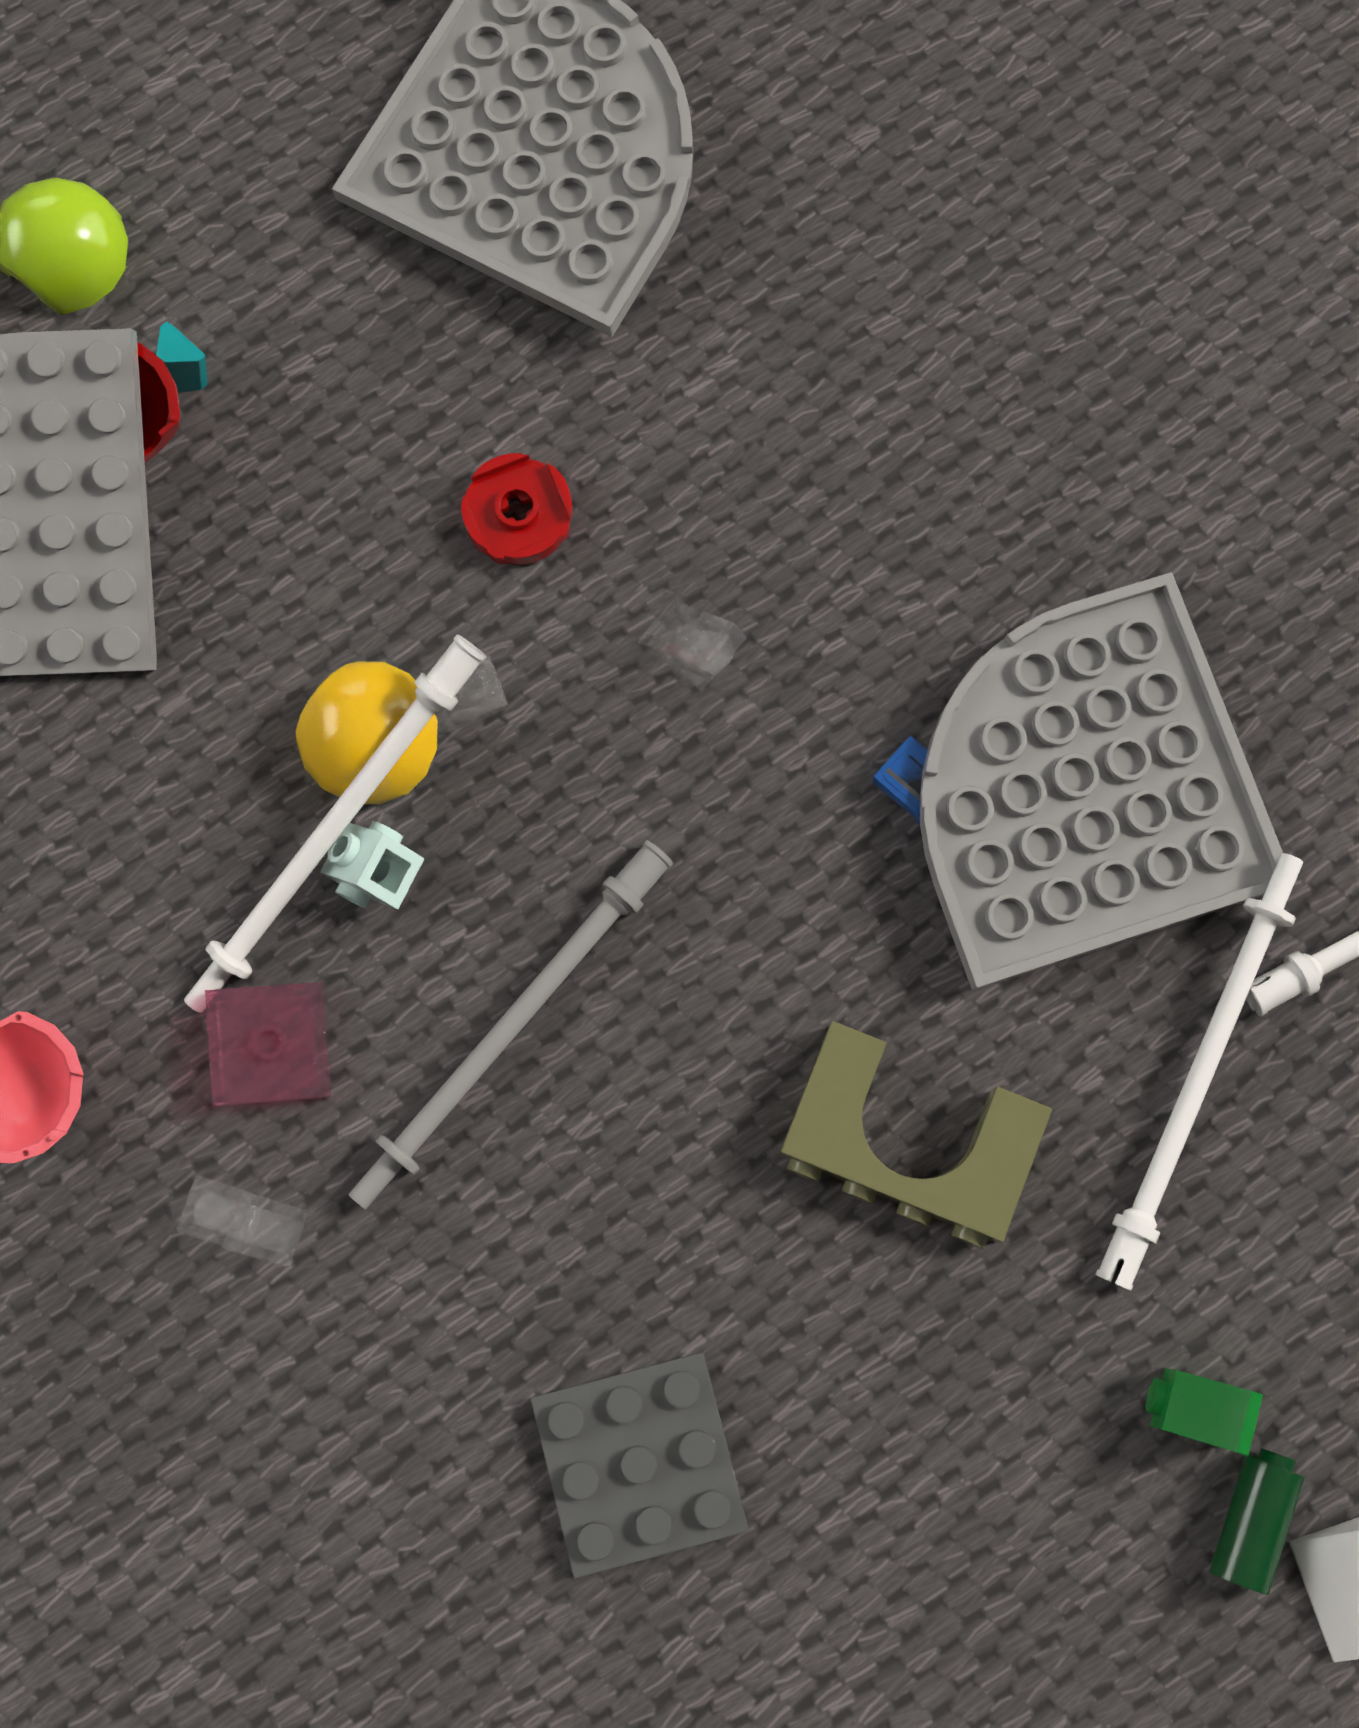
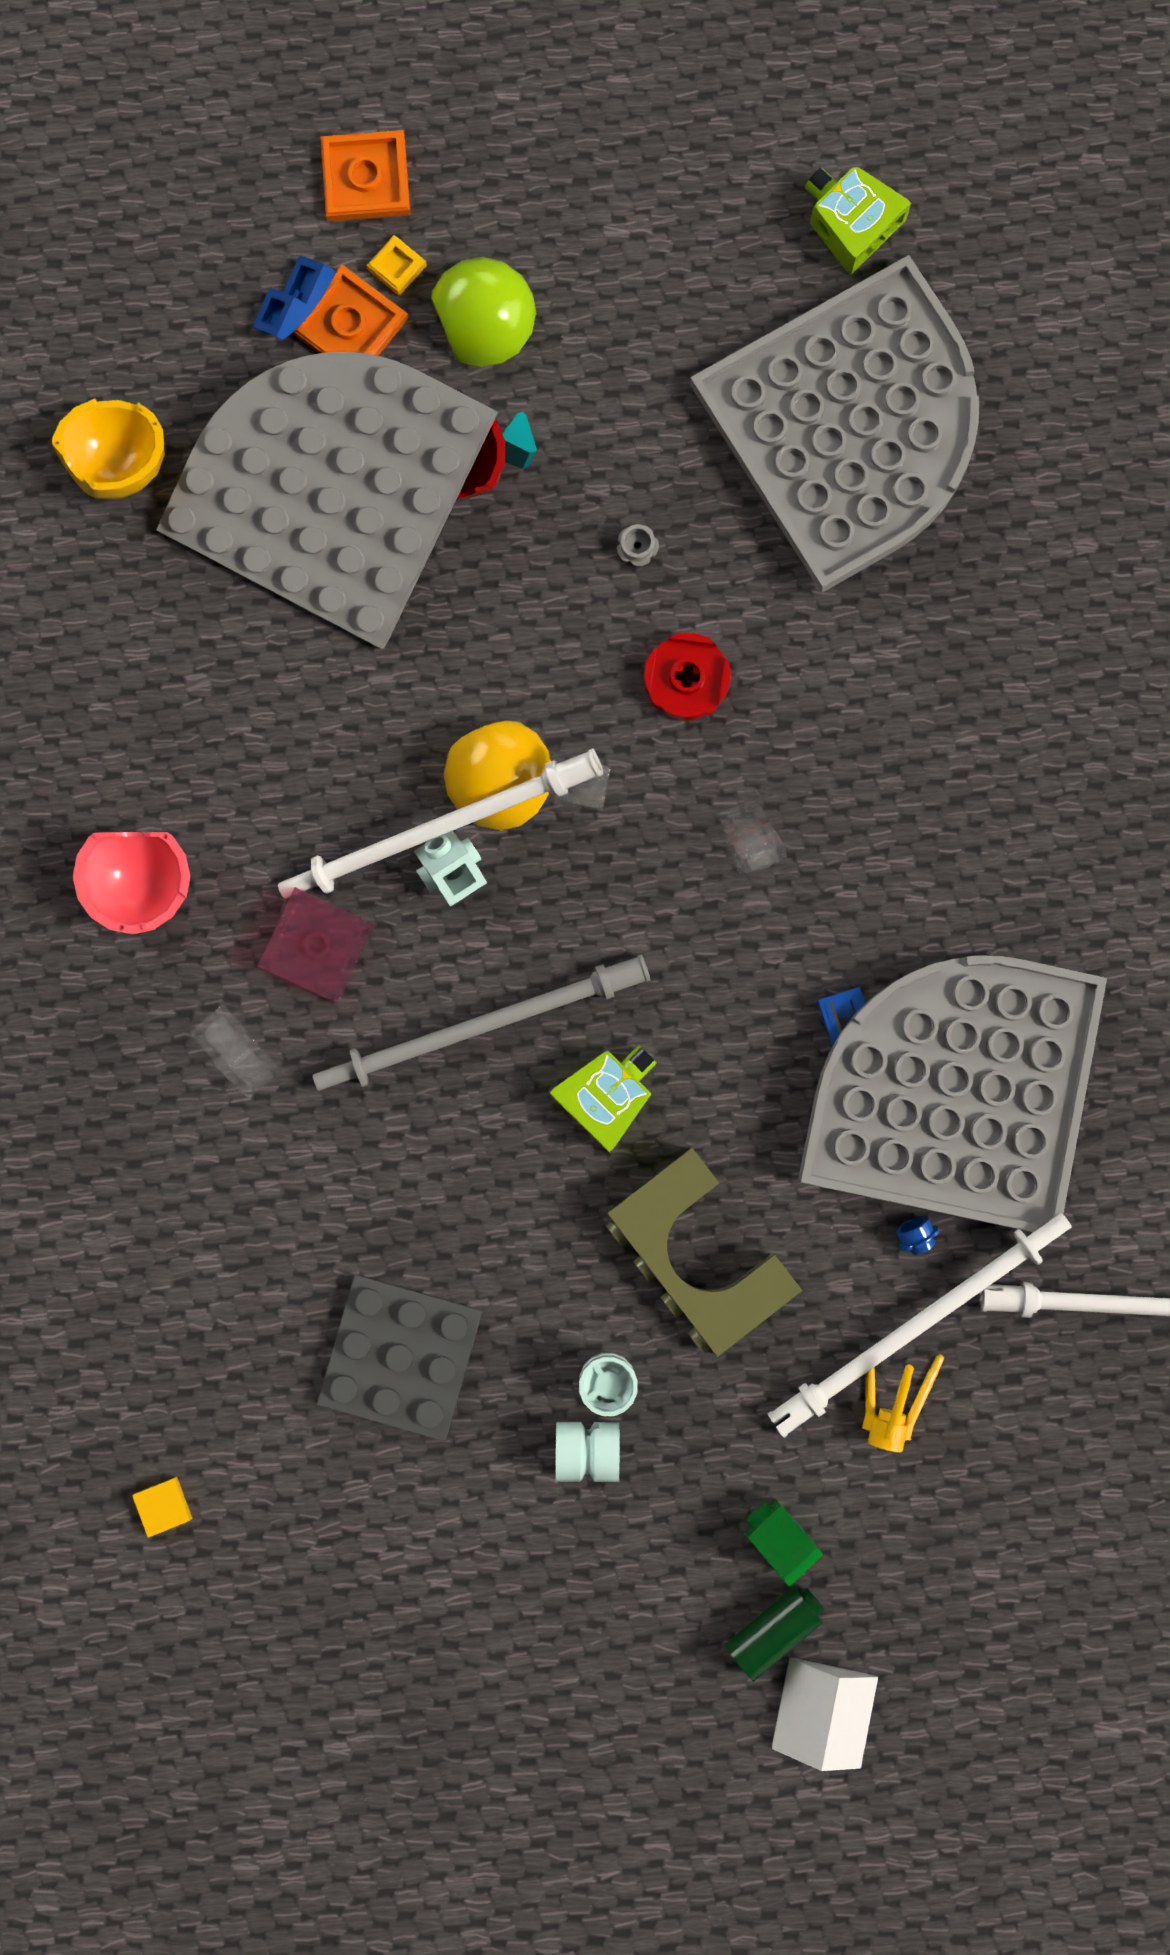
camera: 30 degrees right, 5 degrees up
(376, 385) = (640, 534): none -> light grey plate
(700, 1020) = (606, 1094): none -> lime torso
(898, 1349) = (608, 1384): none -> light aqua wheel
(920, 1442) = (587, 1451): none -> light aqua wheel
(1139, 973) = (917, 1235): none -> blue plate
(1246, 1204) = (892, 1427): none -> yellow plant

